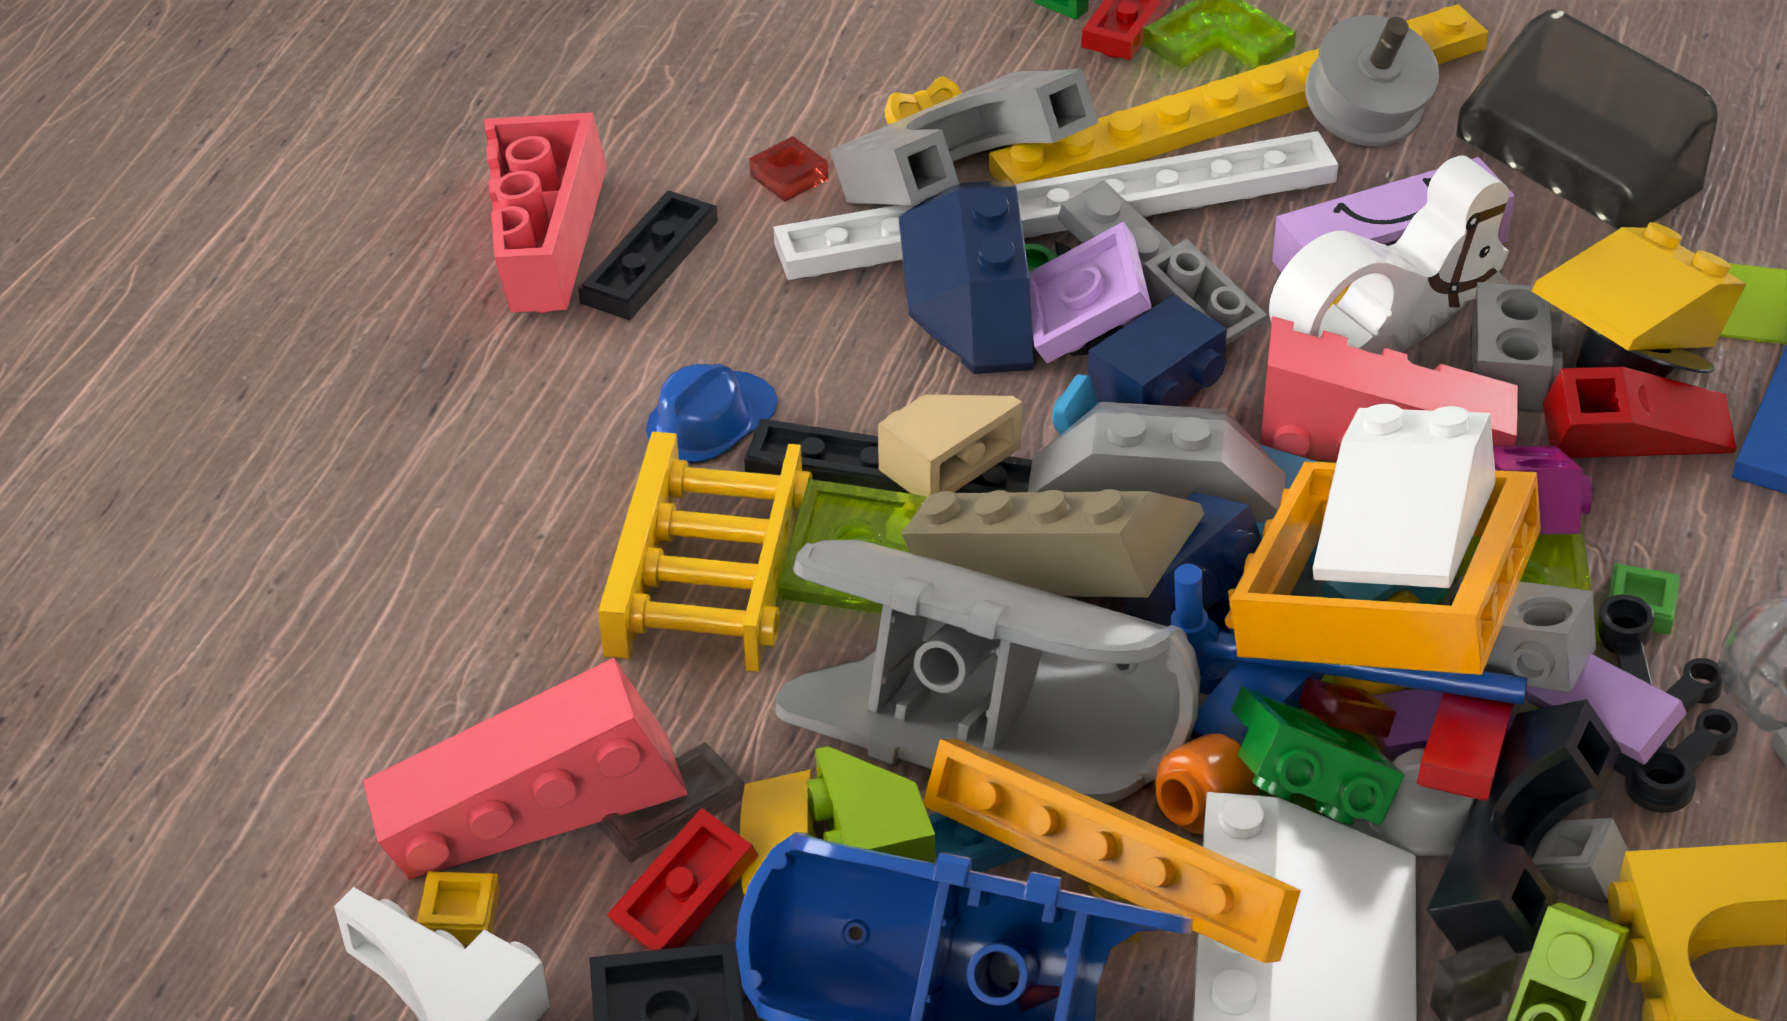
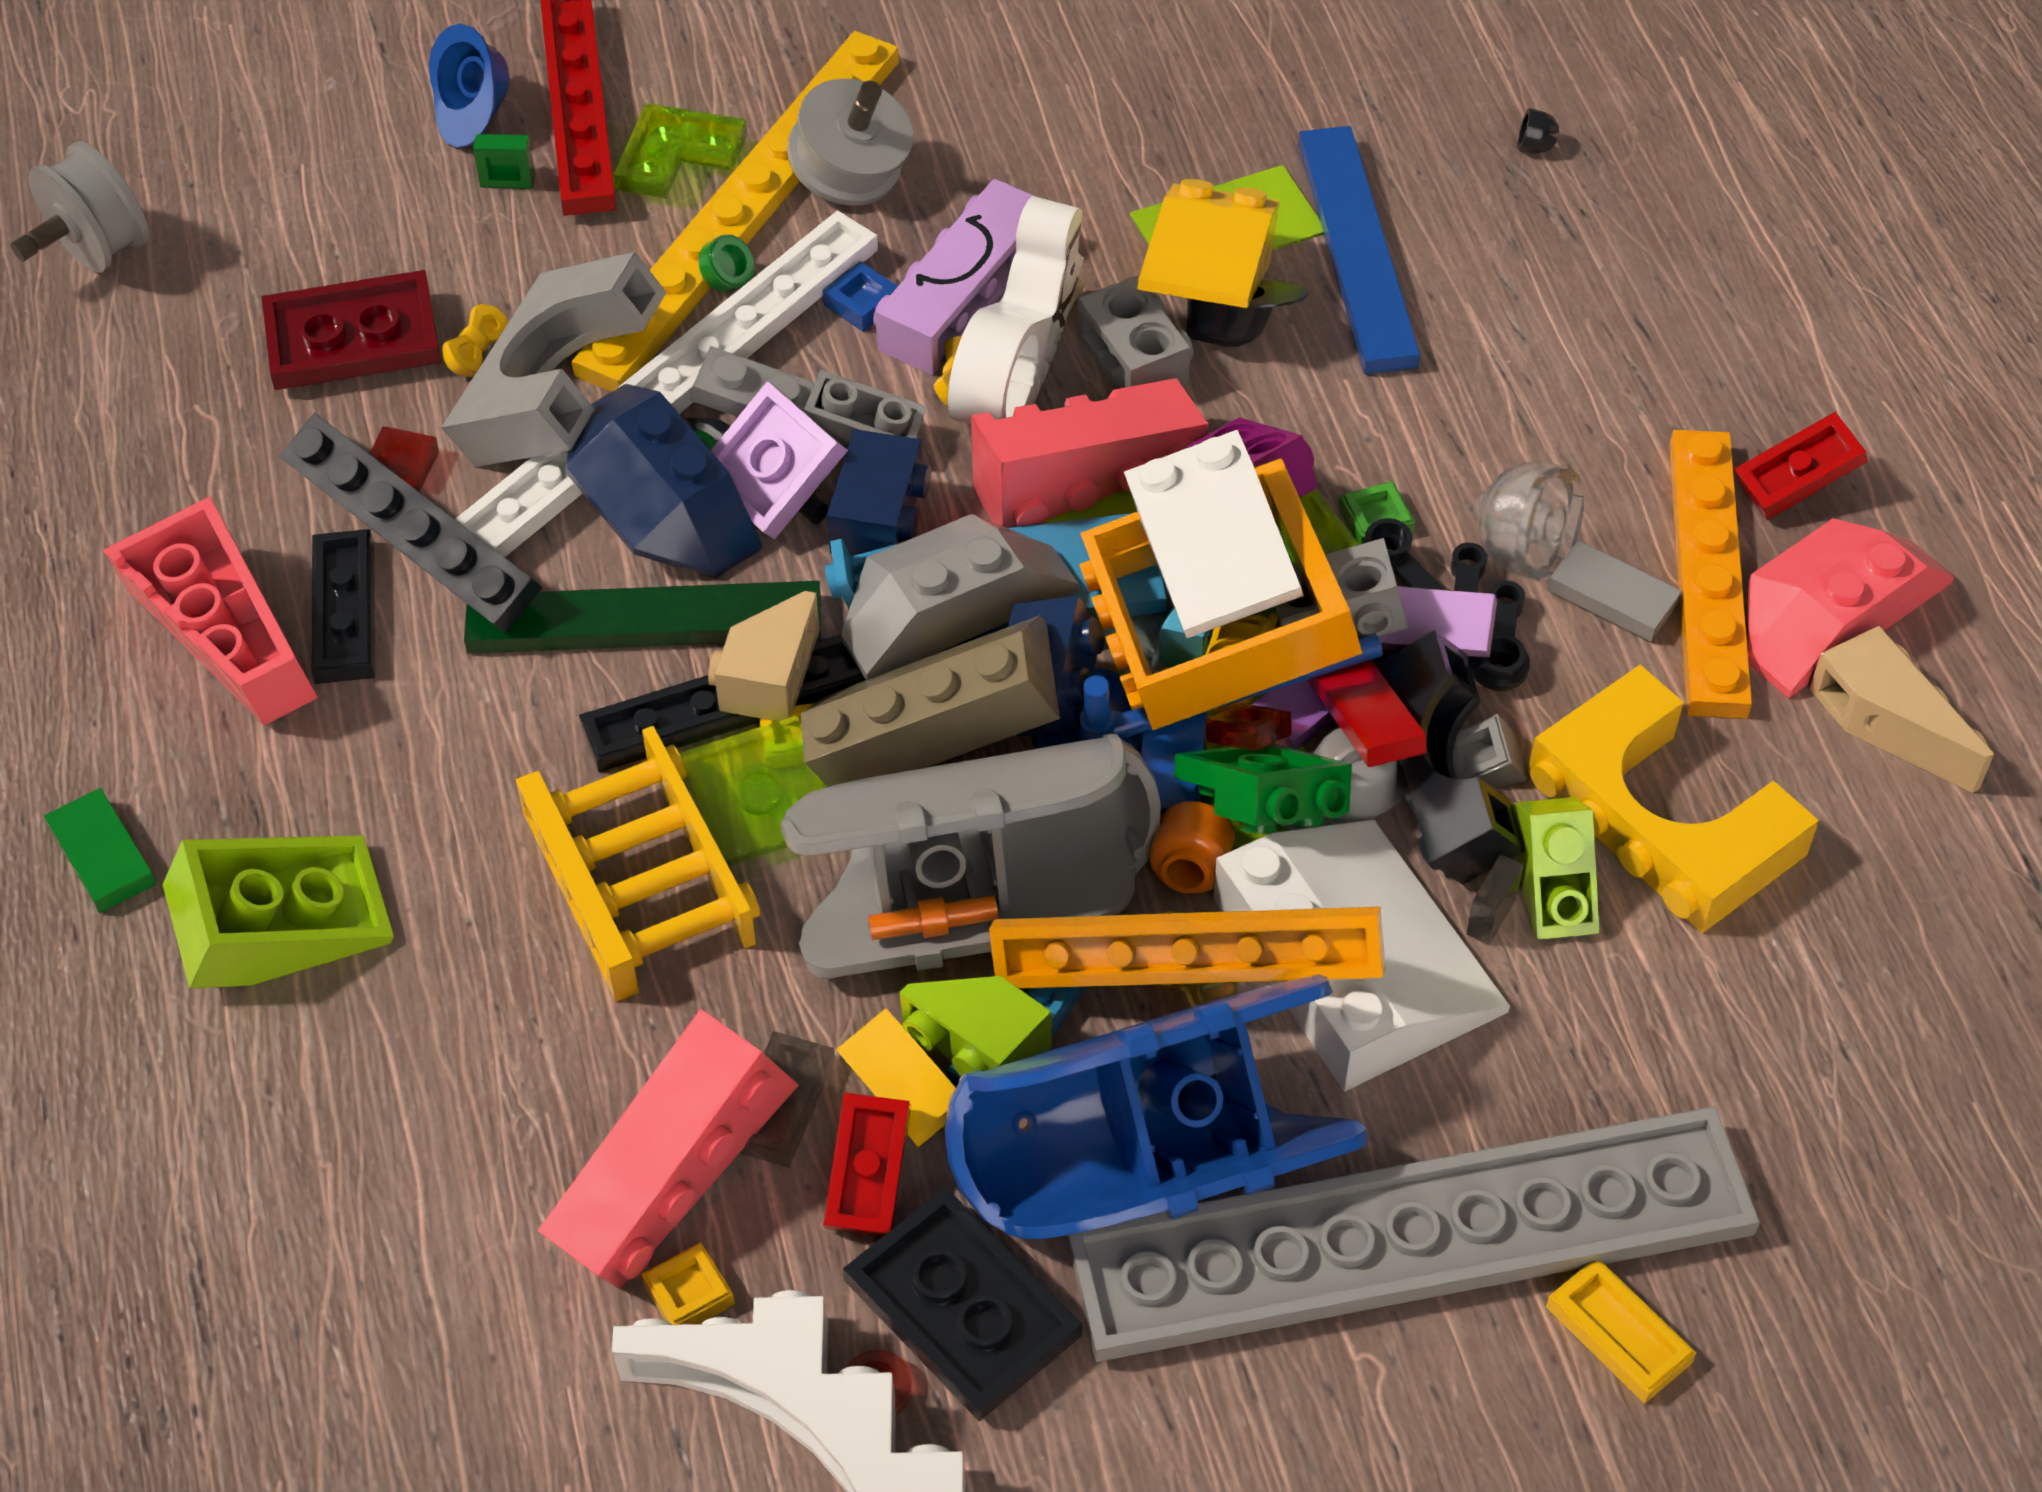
camera: 35 degrees left, 10 degrees up
(309, 342) = (100, 850): none -> green tile
(393, 440) = (272, 906): none -> lime slope
(710, 409) = (524, 730): blue piece -> none
(747, 213) = (411, 523): none -> black plate
(829, 56) = (350, 329): none -> dark red plate
(859, 360) = (631, 616): none -> dark green tile
(908, 713) = (932, 917): none -> orange bar
(1185, 131) = (726, 263): none -> green tile
(1281, 200) = (857, 295): none -> blue tile
(1593, 121) = (1051, 101): clear smoke windscreen -> none
(1634, 415) = (1269, 361): red slope -> none

